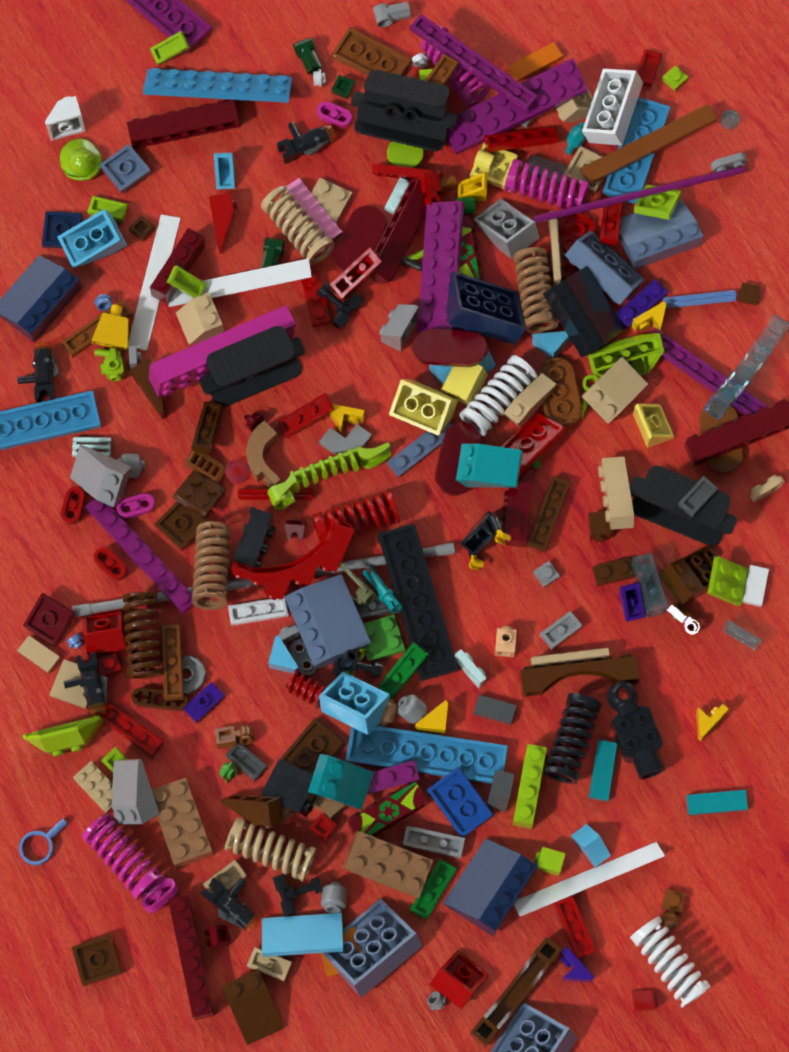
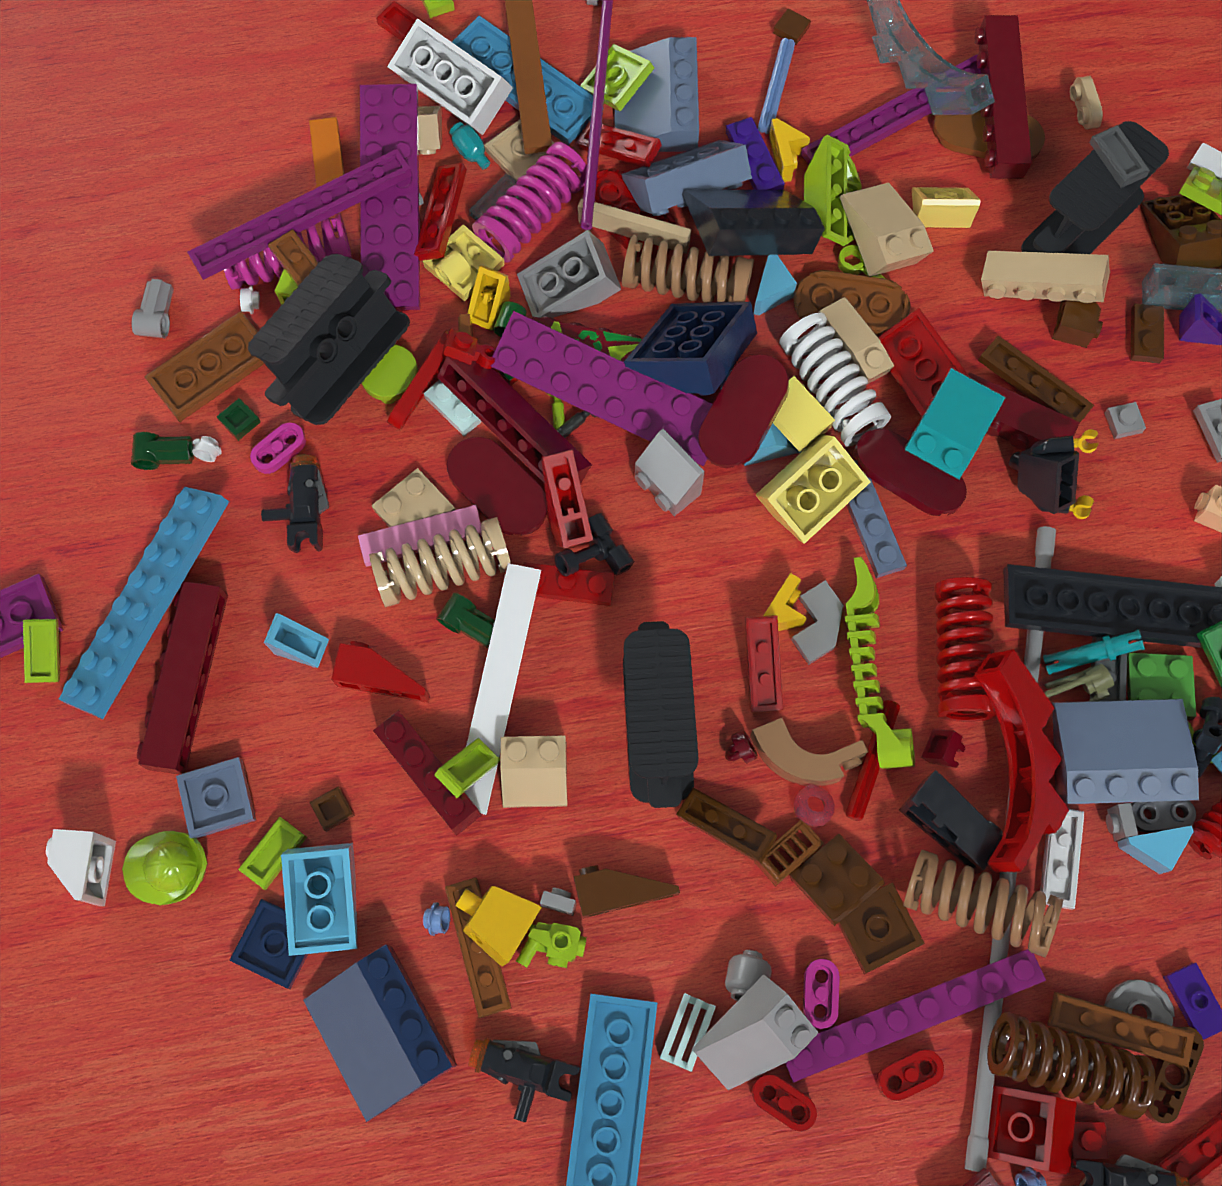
camera: 70 degrees left, 0 degrees up
(147, 304) = (420, 817): white sticker -> none
(190, 364) = (621, 791): dark pink brick -> none

